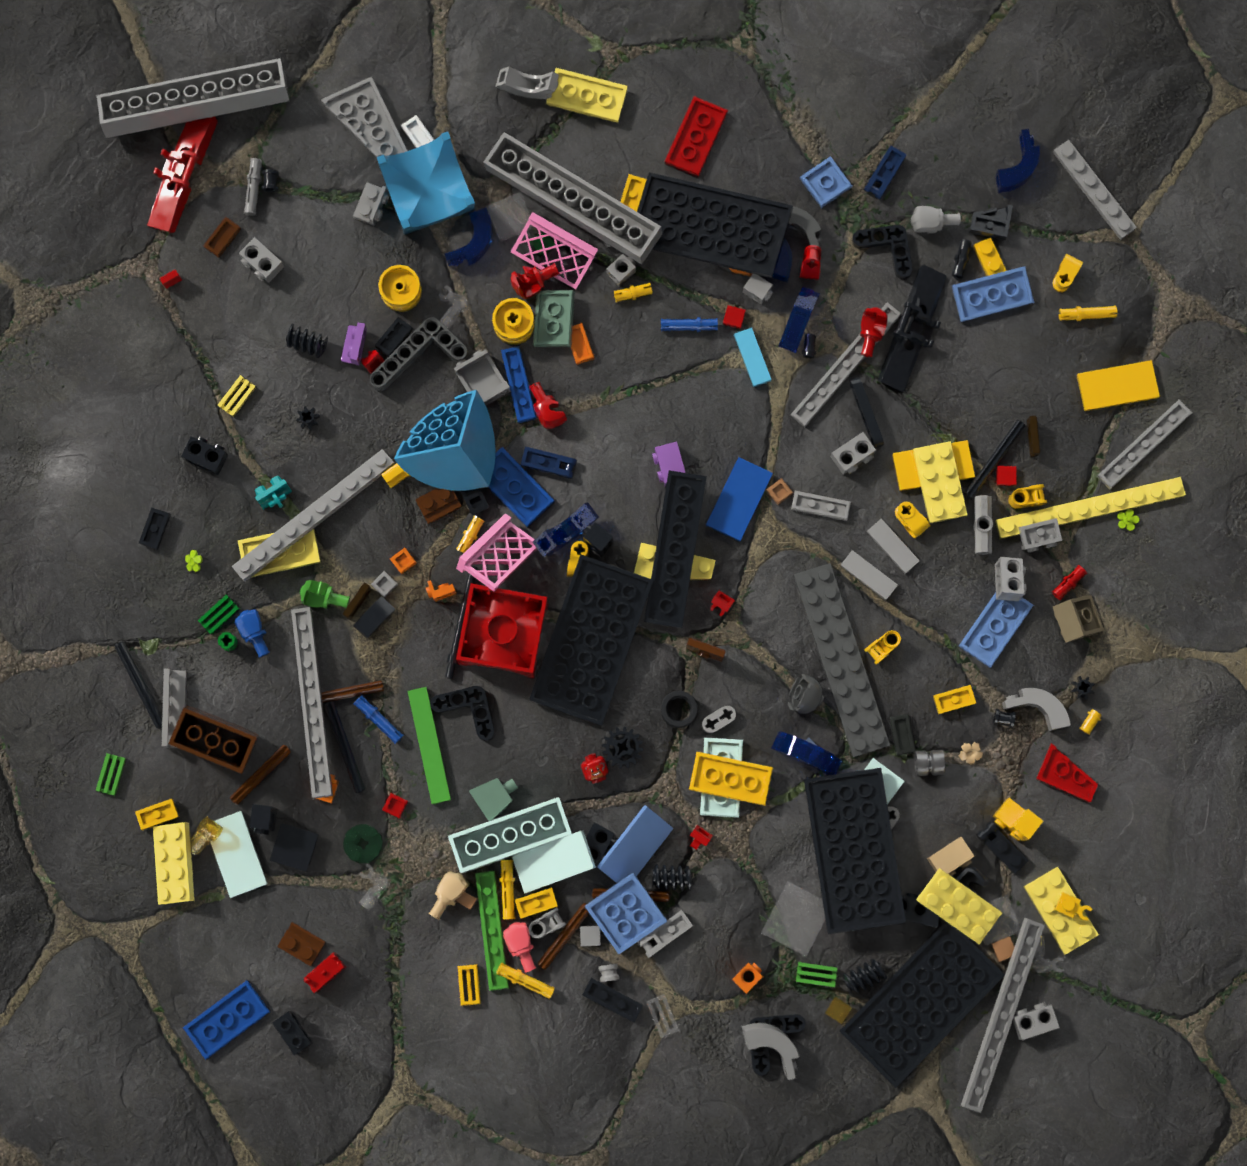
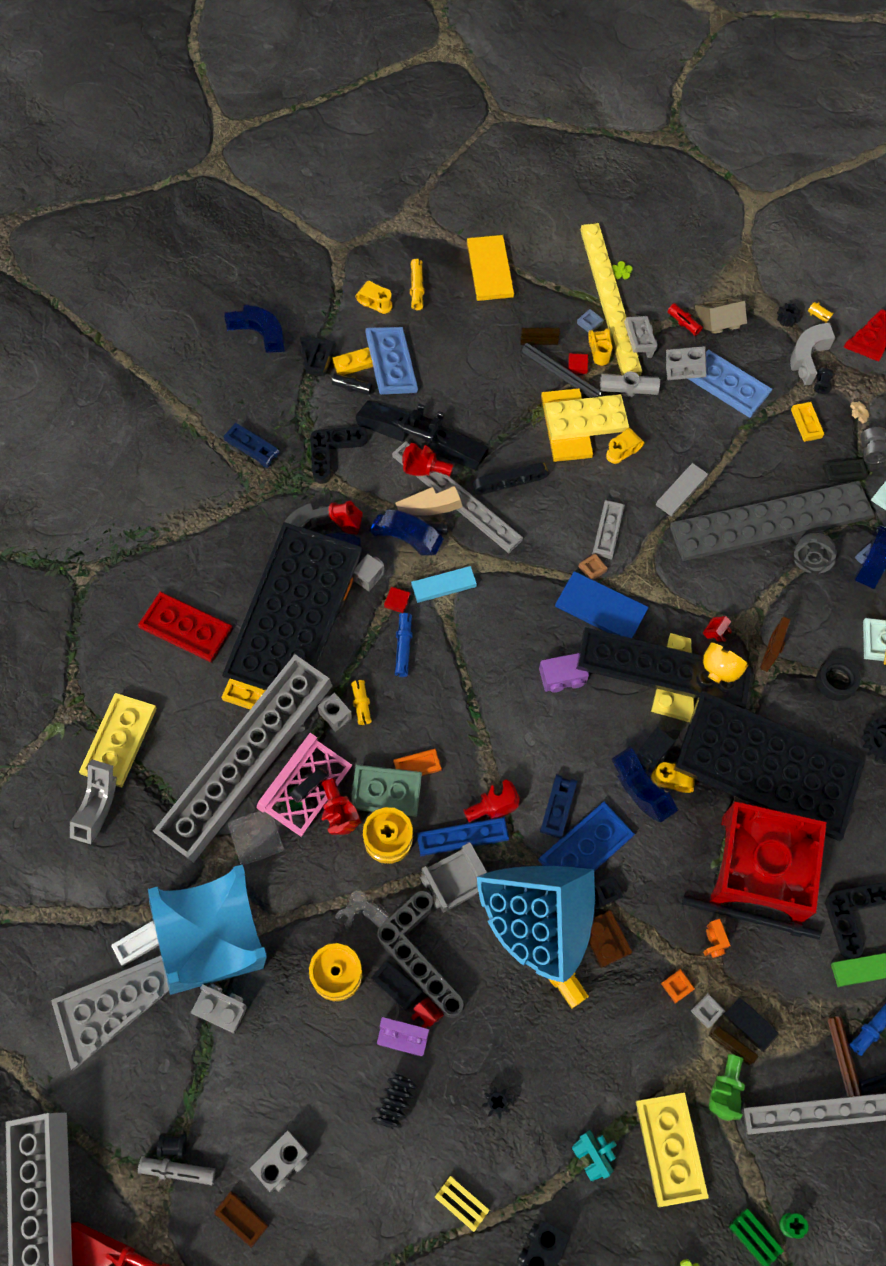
camera: 90 degrees left, 15 degrees down
(251, 630) = (777, 1190): blue piece -> none
(312, 515) = (629, 1103): light grey plate -> none
(470, 534) = (646, 901): yellow pin -> none
(479, 243) = (277, 868): clear blue arch -> none
(483, 545) = (662, 873): bright pink fence -> none
(551, 253) = (309, 785): none -> black beam
(677, 596) = (723, 664): none -> yellow cylinder
(721, 723) = (844, 641): light grey beam -> none
(826, 182) = (254, 502): medium blue tile -> none
(832, 339) = (430, 503): none -> tan slope
(850, 449) = (550, 494): light grey brick -> none
(882, 647) = (758, 479): yellow piece -> none
(893, 546) = (650, 466): light grey tile -> none
(932, 219) = (308, 406): light grey piece -> none
(1059, 488) = (590, 321): none -> sand blue tile
(1094, 189) = (291, 271): light grey plate -> none
(1144, 444) = (548, 252): light grey tile -> none

